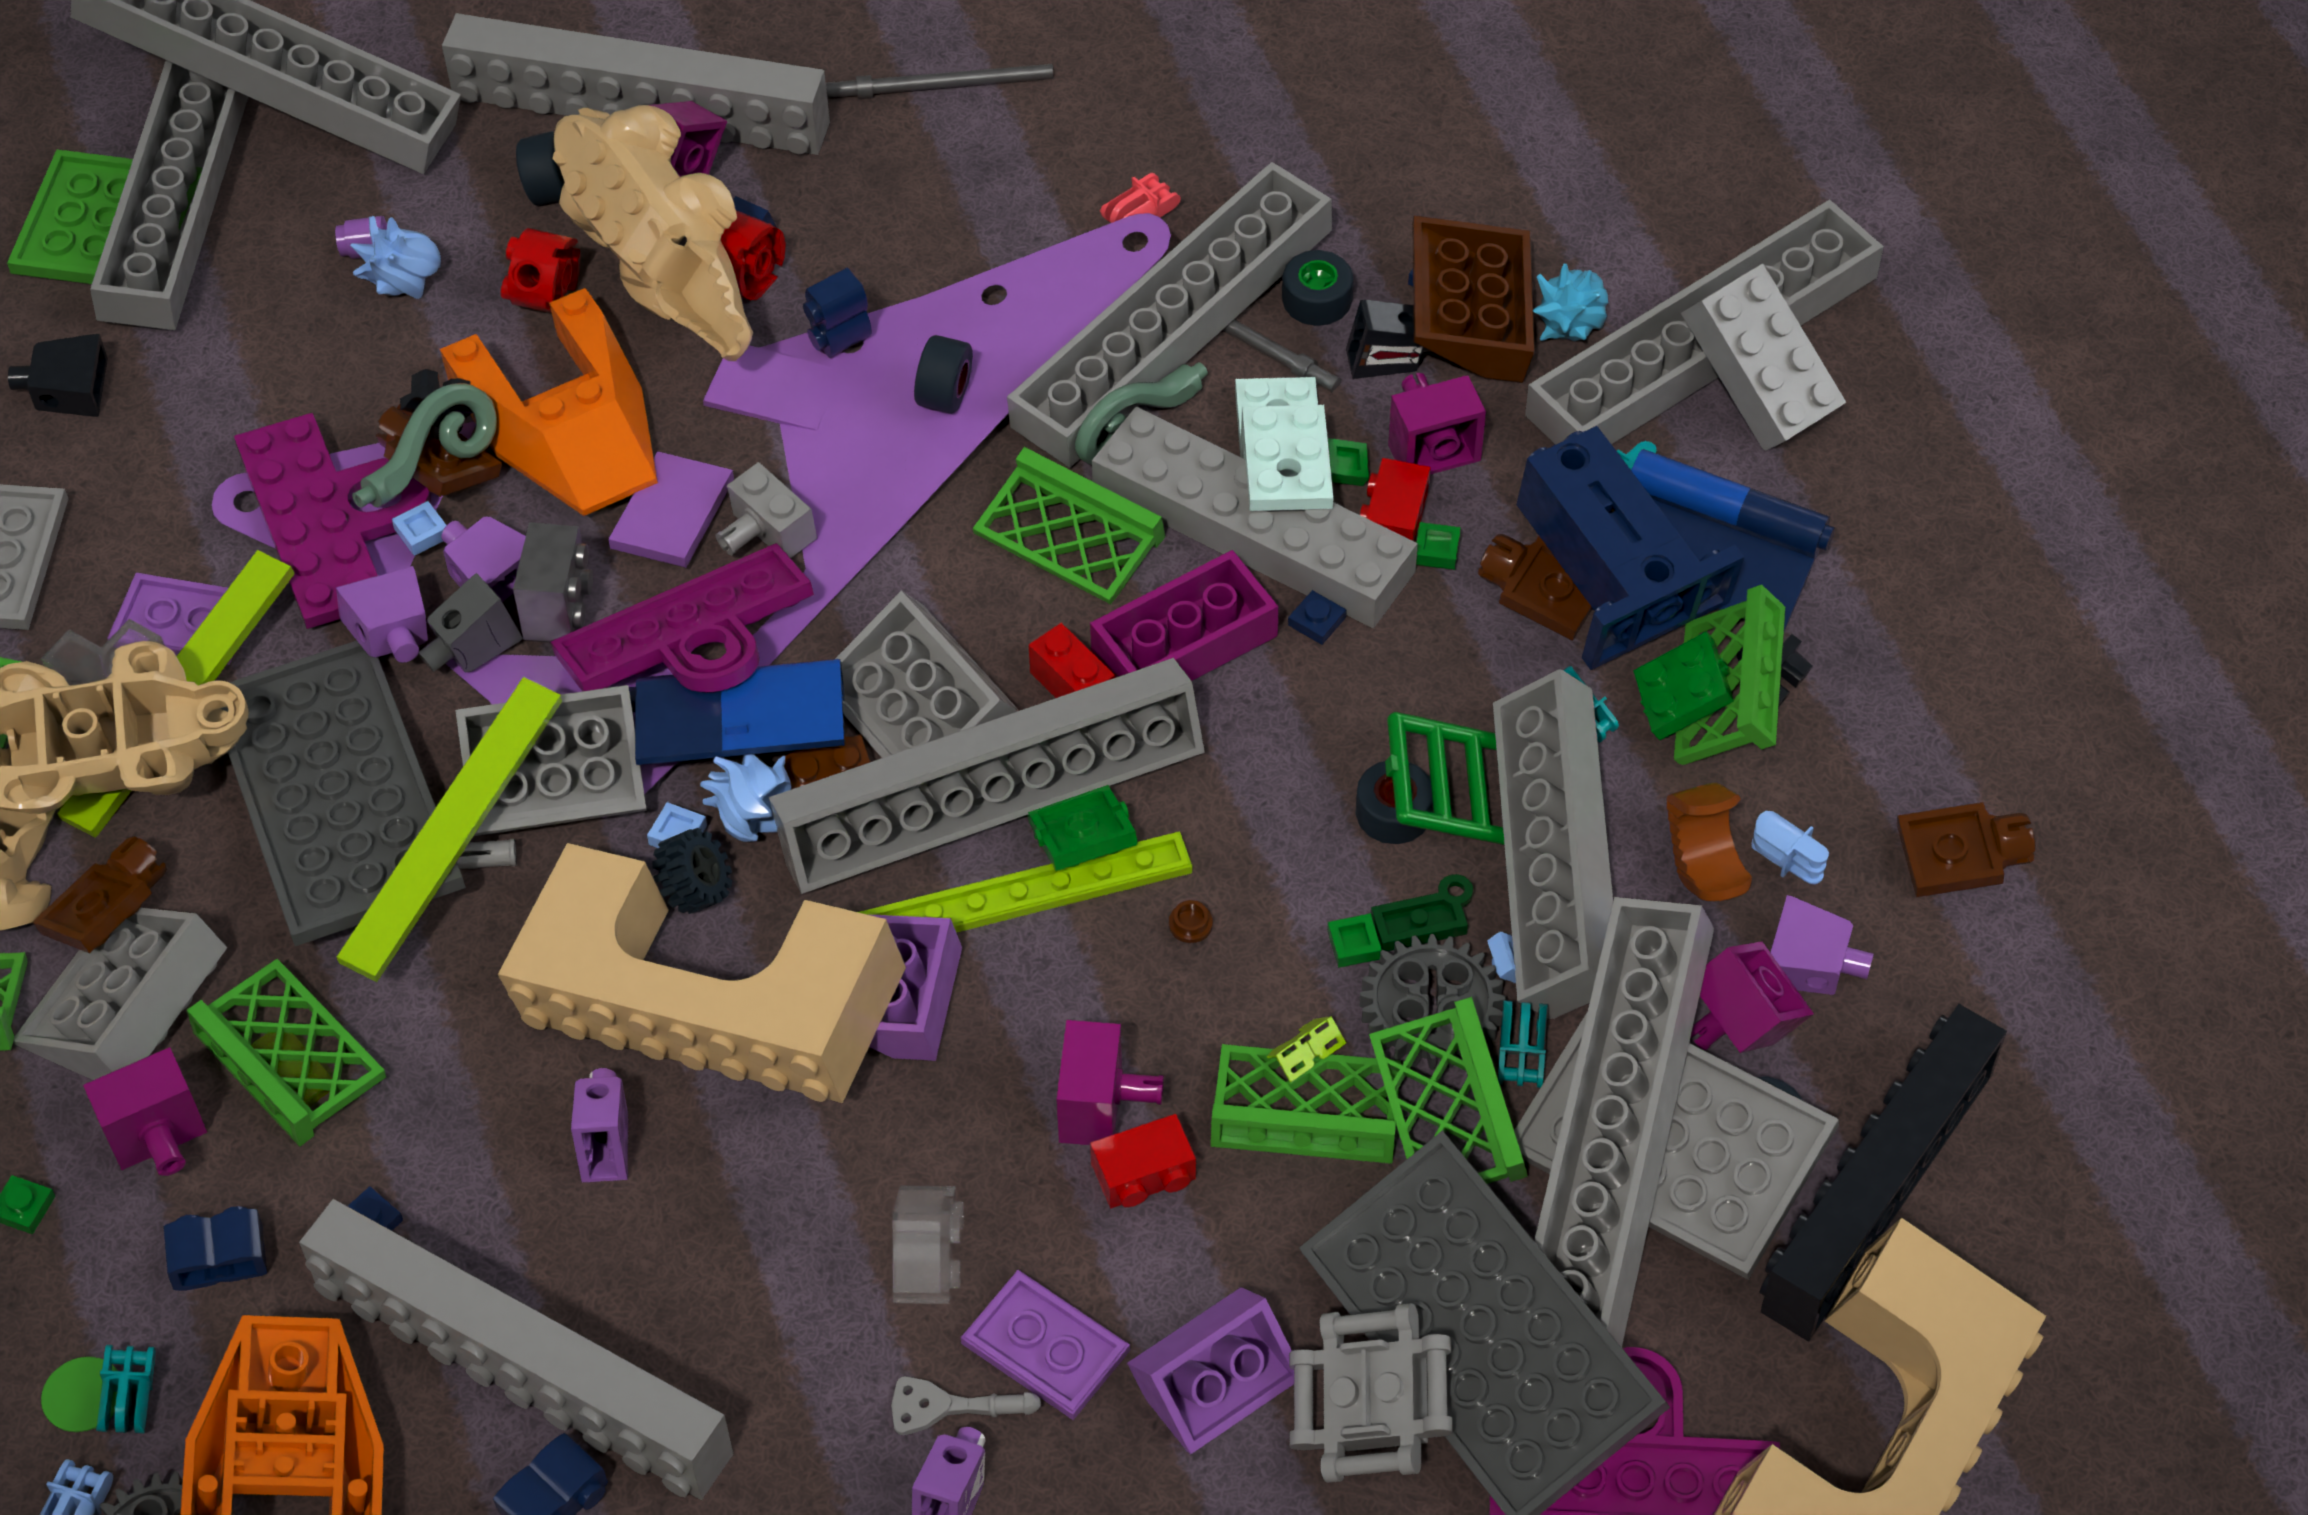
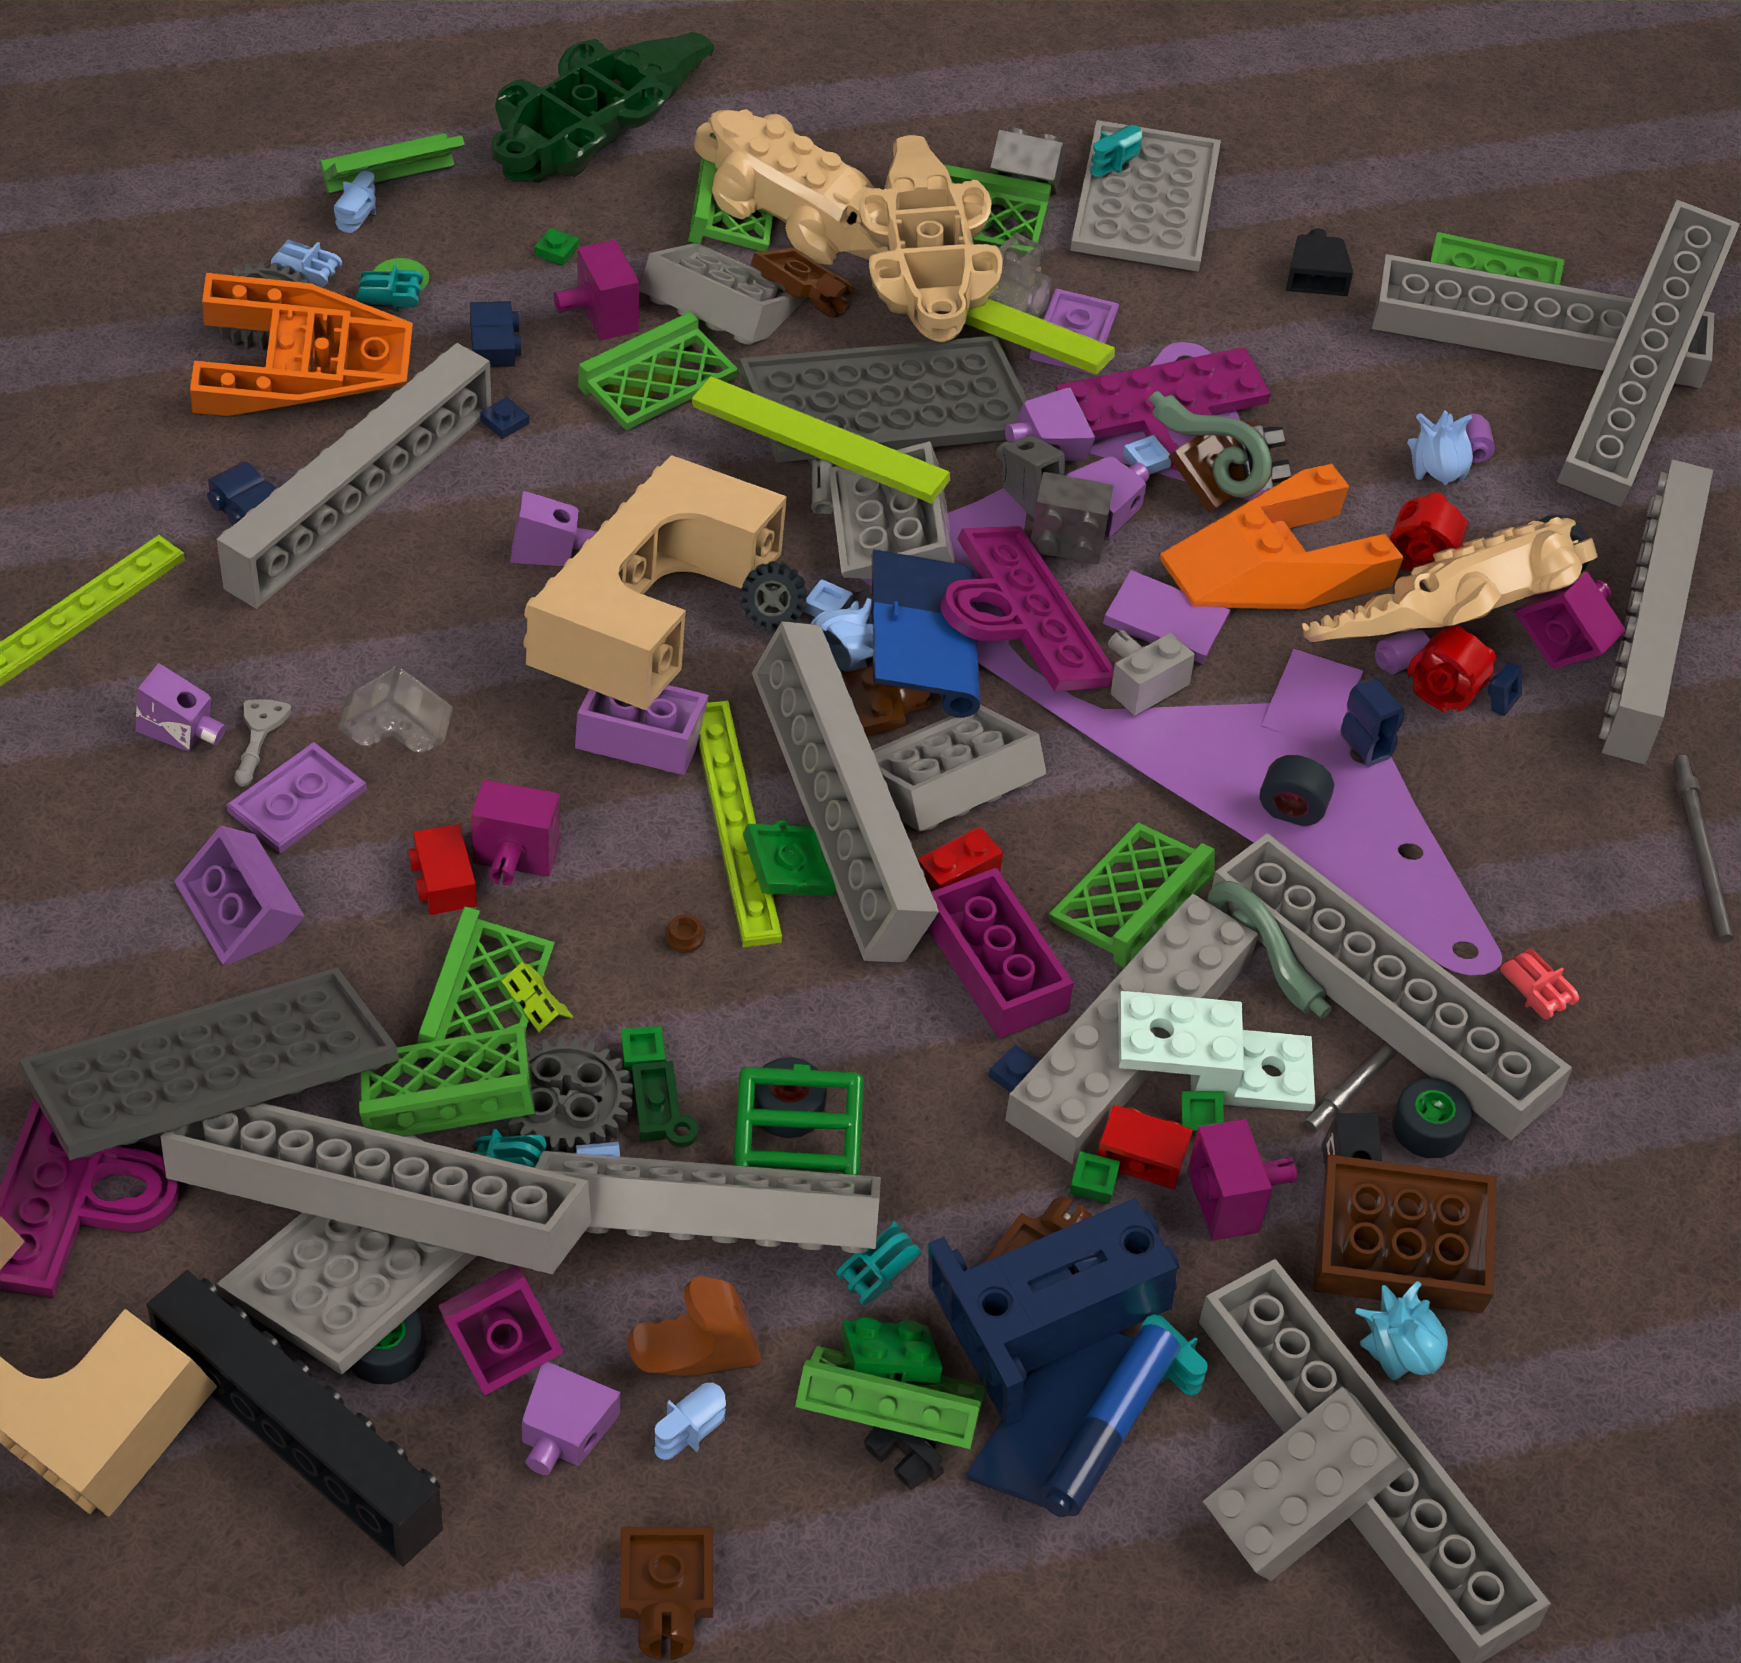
camera: 90 degrees right, 5 degrees down
(1372, 1393) = (170, 981): light grey brick -> none

